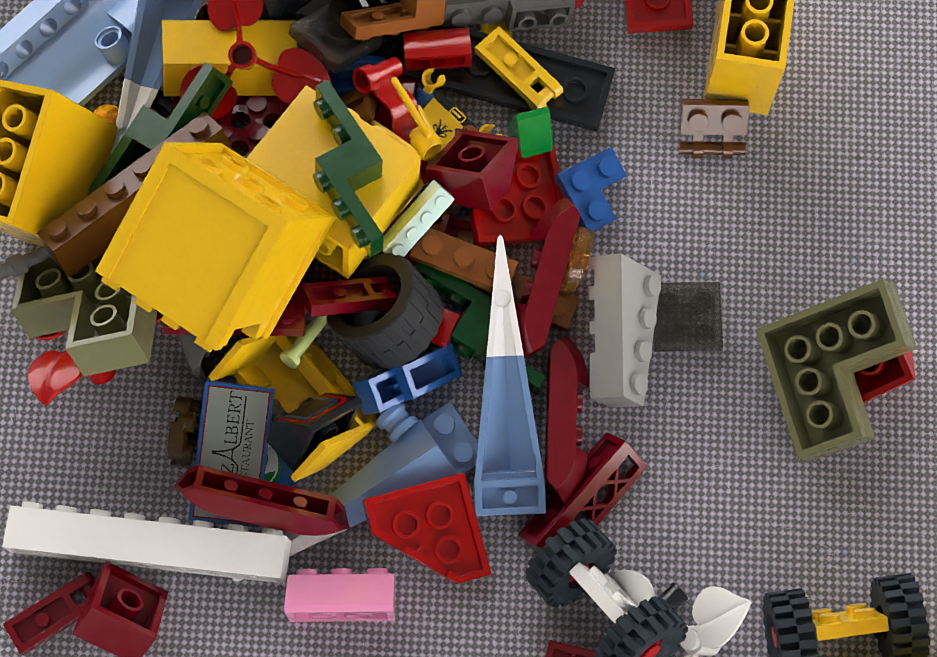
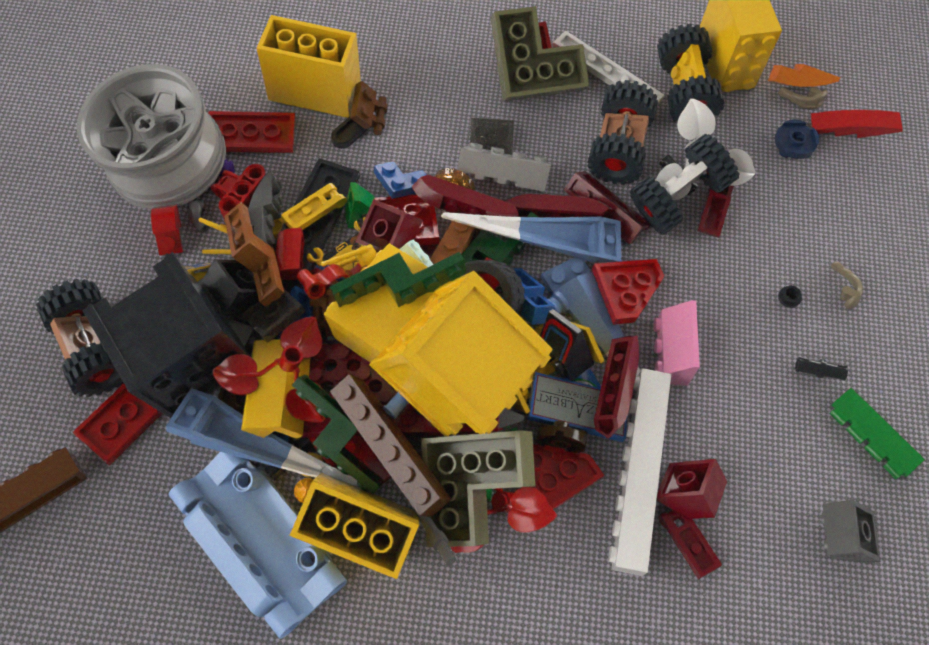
camera: 90 degrees left, 10 degrees down
(136, 423) = (563, 474): none -> red plate
(666, 102) = (346, 133): none -> black tile
(710, 514) = (619, 149): none -> black plate
(852, 498) = (601, 65): none -> white plate

